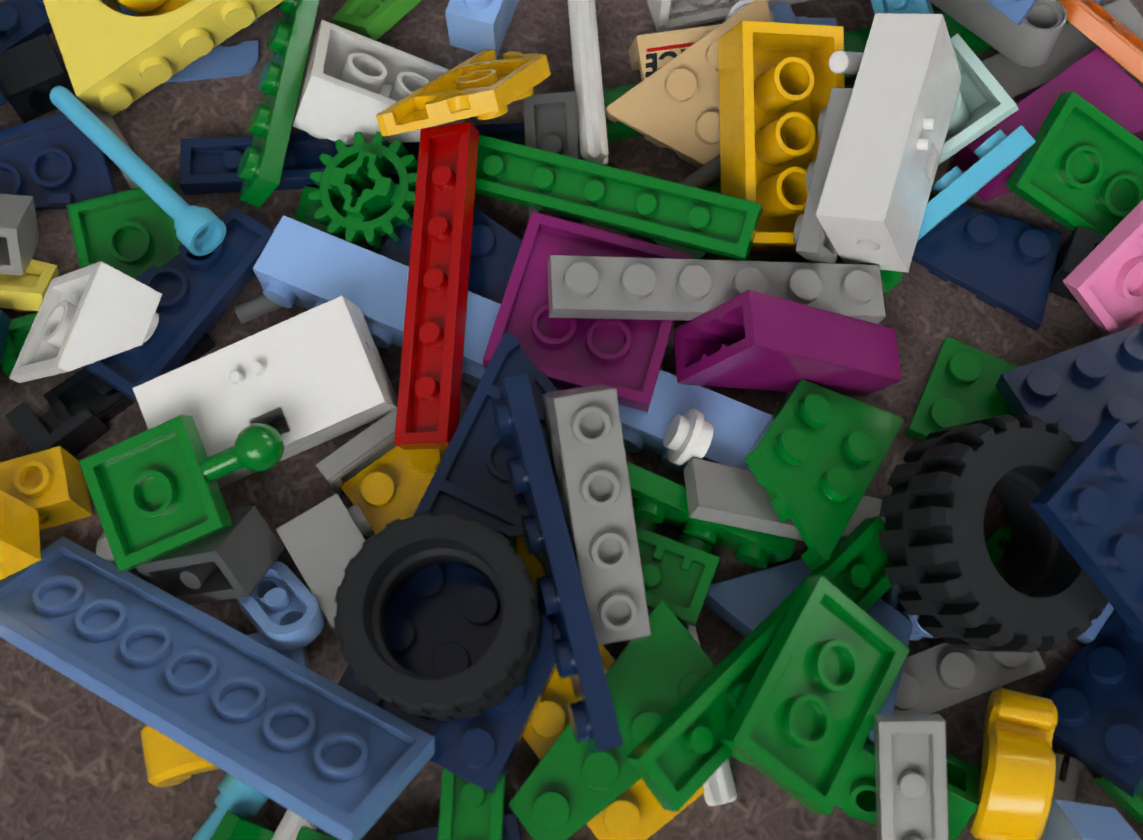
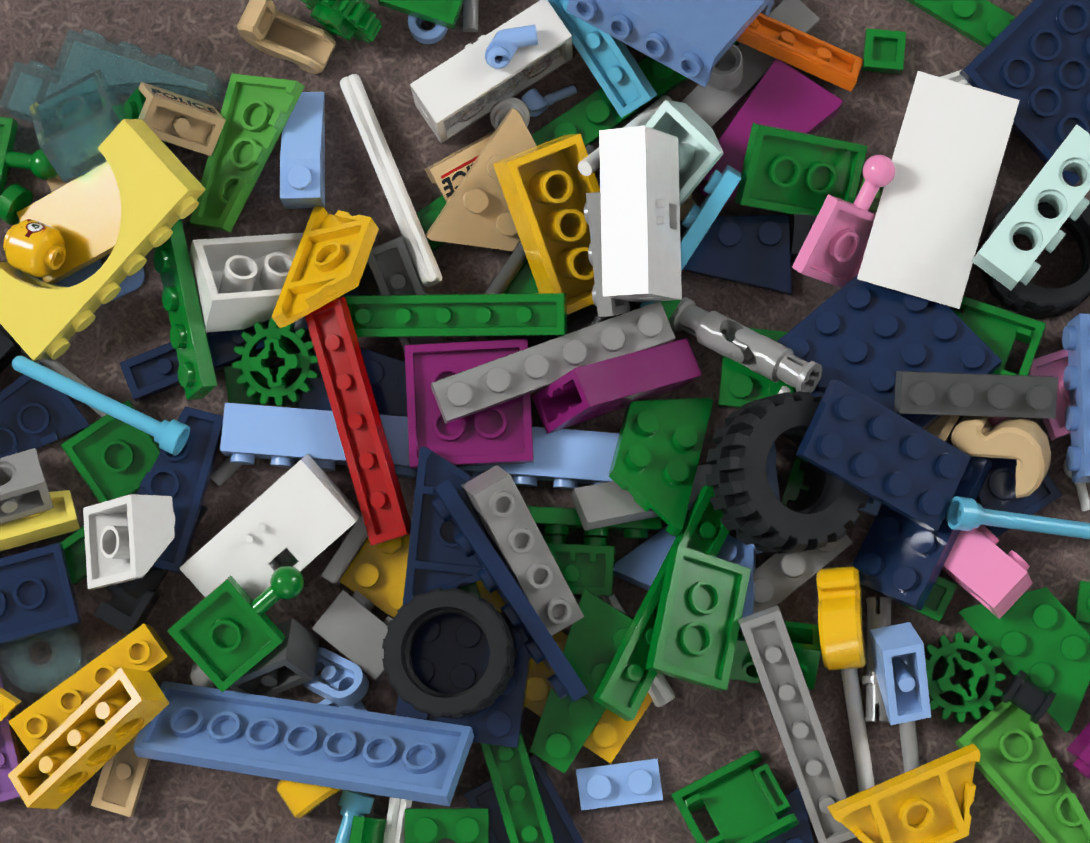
camera: 10 degrees left, 10 degrees up
(688, 437) = (566, 473): white plate -> none
(955, 345) = (745, 346): none -> light grey piece

